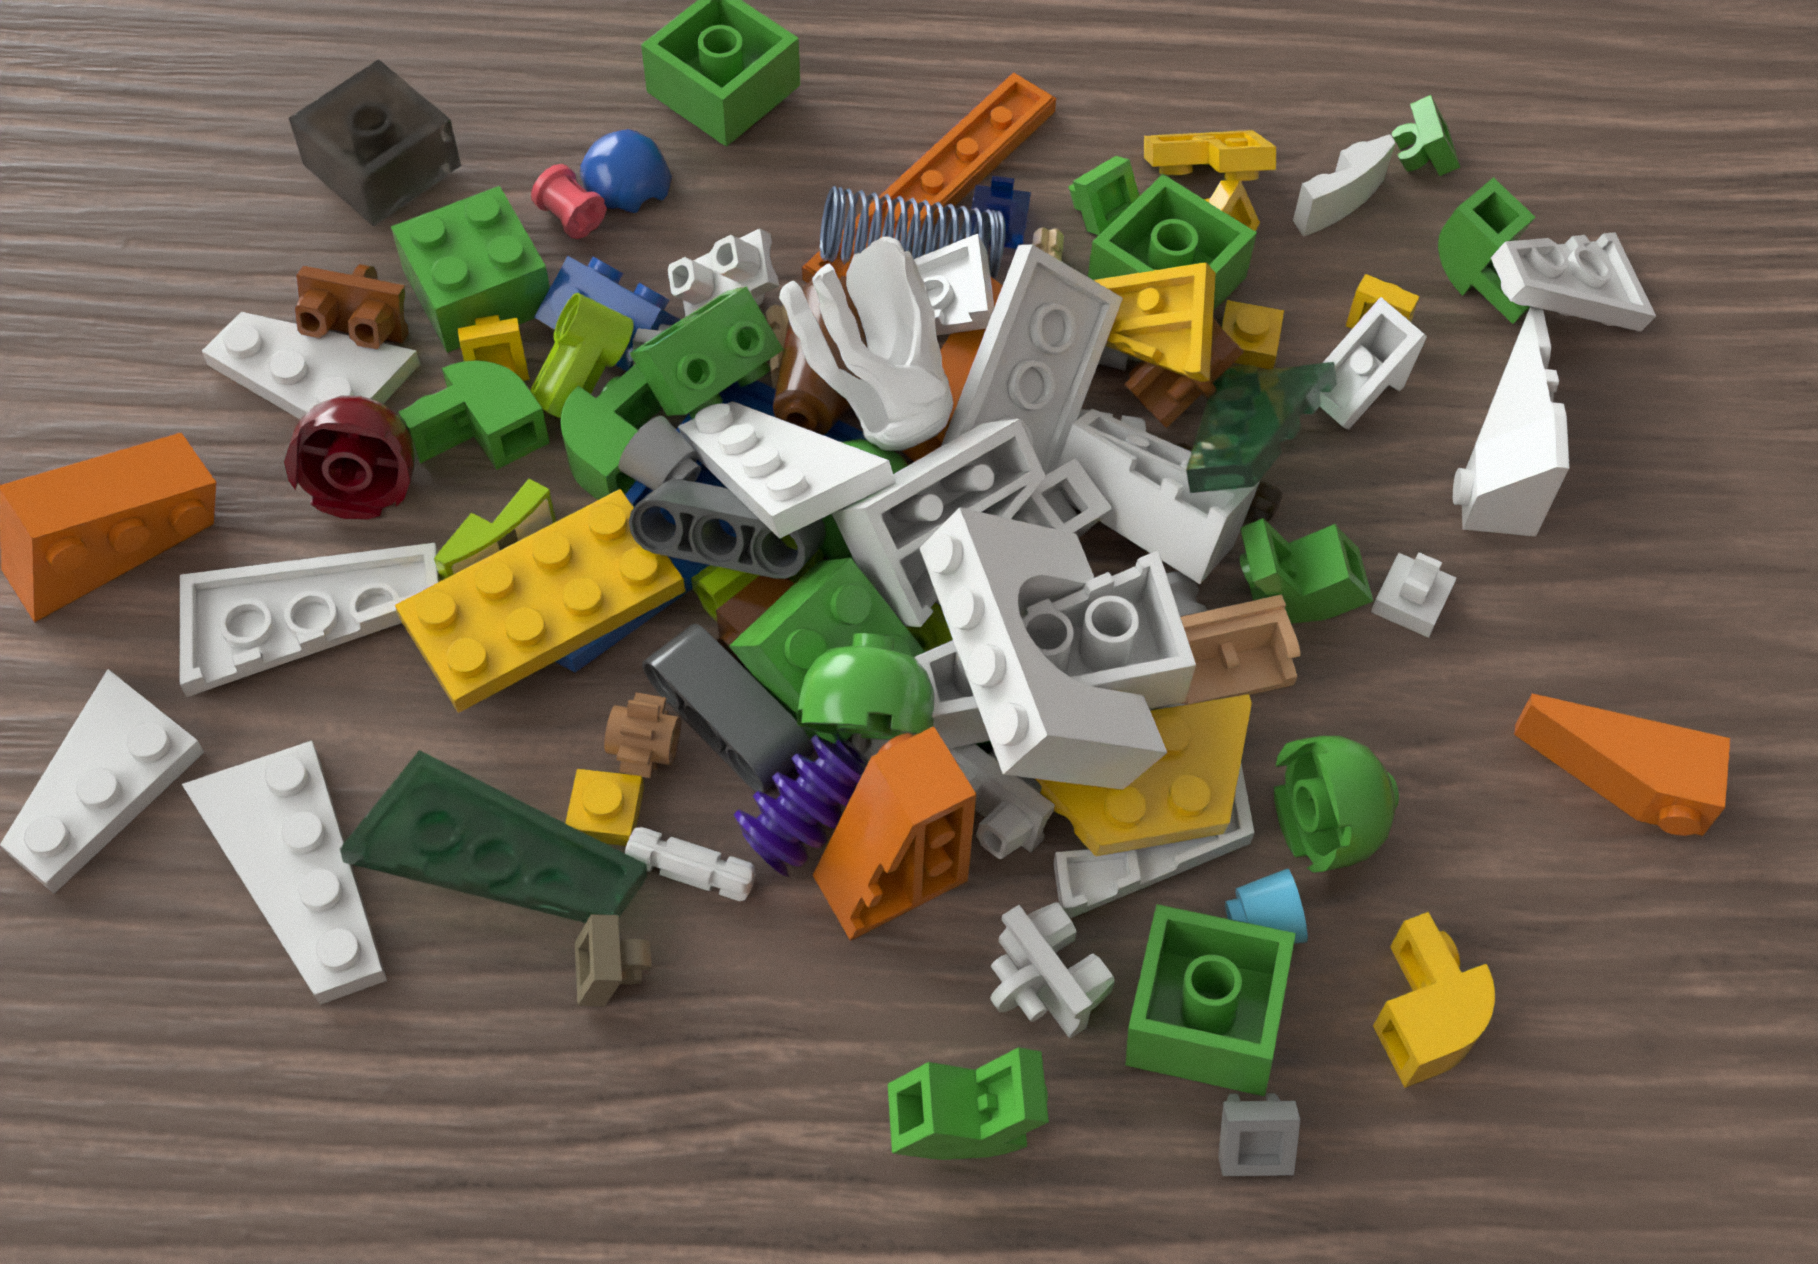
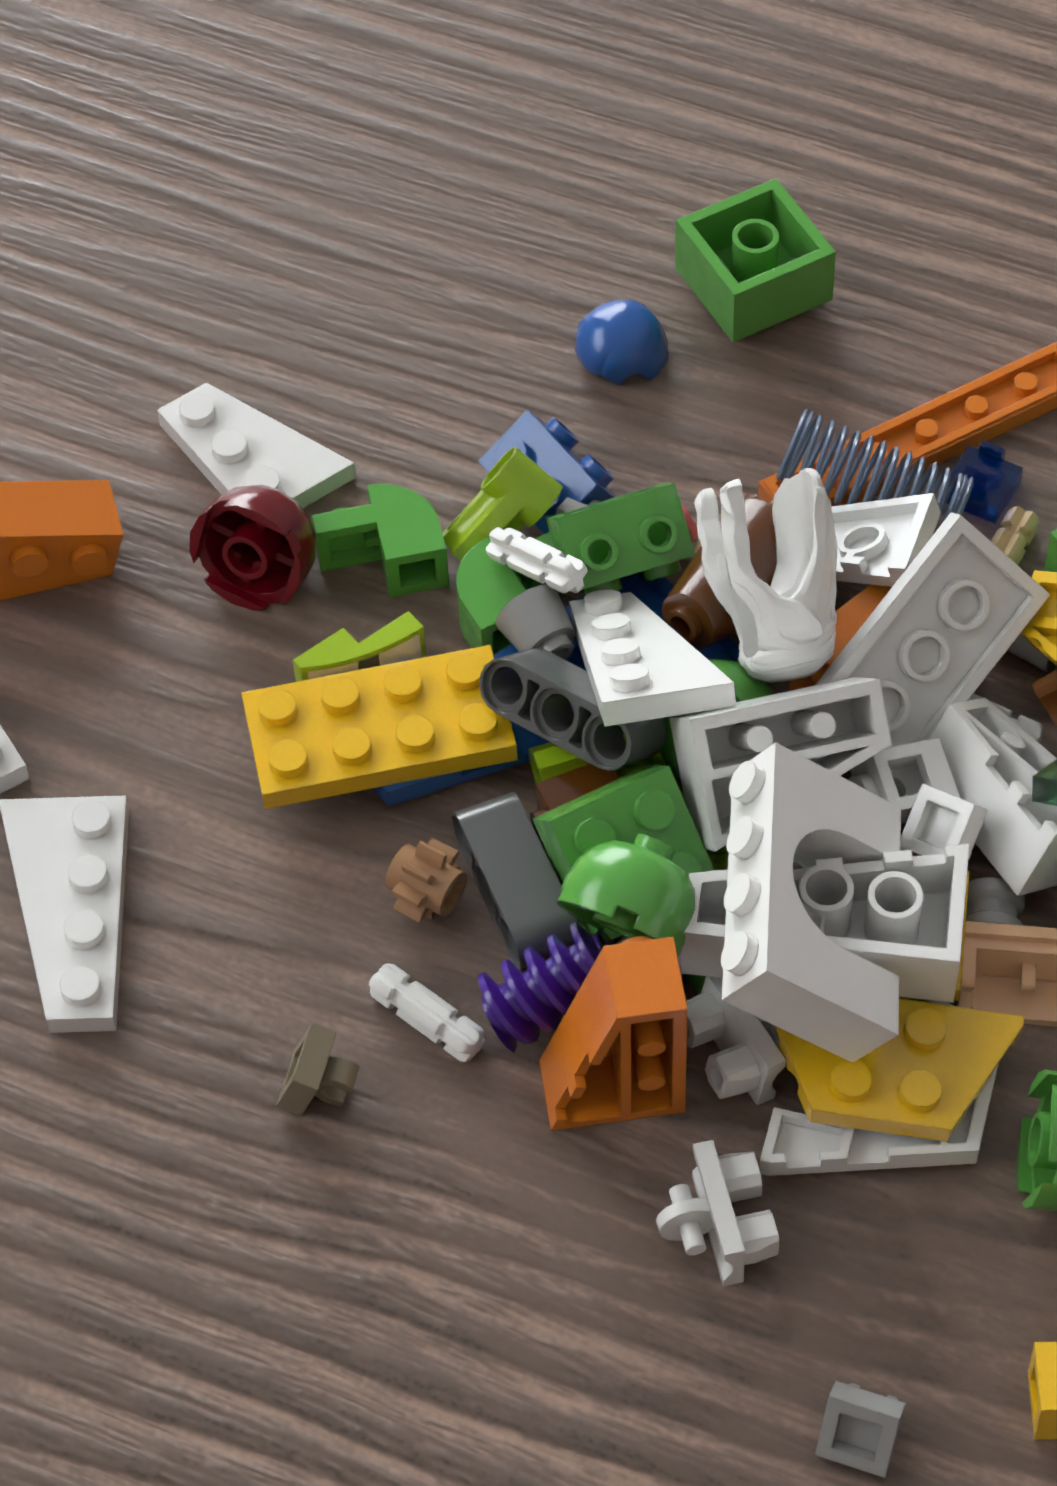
camera: 25 degrees right, 5 degrees down
(286, 610) = (150, 671): white wing -> none
(351, 304) = (309, 401): dark orange hips -> none
(375, 142) = (388, 252): clear smoke brick -> none
(471, 264) = (435, 397): bright green brick -> none
(485, 843) = (248, 935): clear green wing -> none
(496, 343) = (430, 476): yellow tile -> none
(568, 201) = (549, 348): coral bush -> none
(605, 805) = (367, 936): yellow plate -> none
(638, 395) = (536, 560): none -> white axle
(728, 266) = (679, 459): white hips -> none
(966, 1111) = (588, 1311): bright green brick -> none
(1113, 537) = (941, 821): none -> white tile
(1209, 999) = (863, 1286): bright green brick -> none
(1271, 904) = (960, 1229): medium azure hat -> none

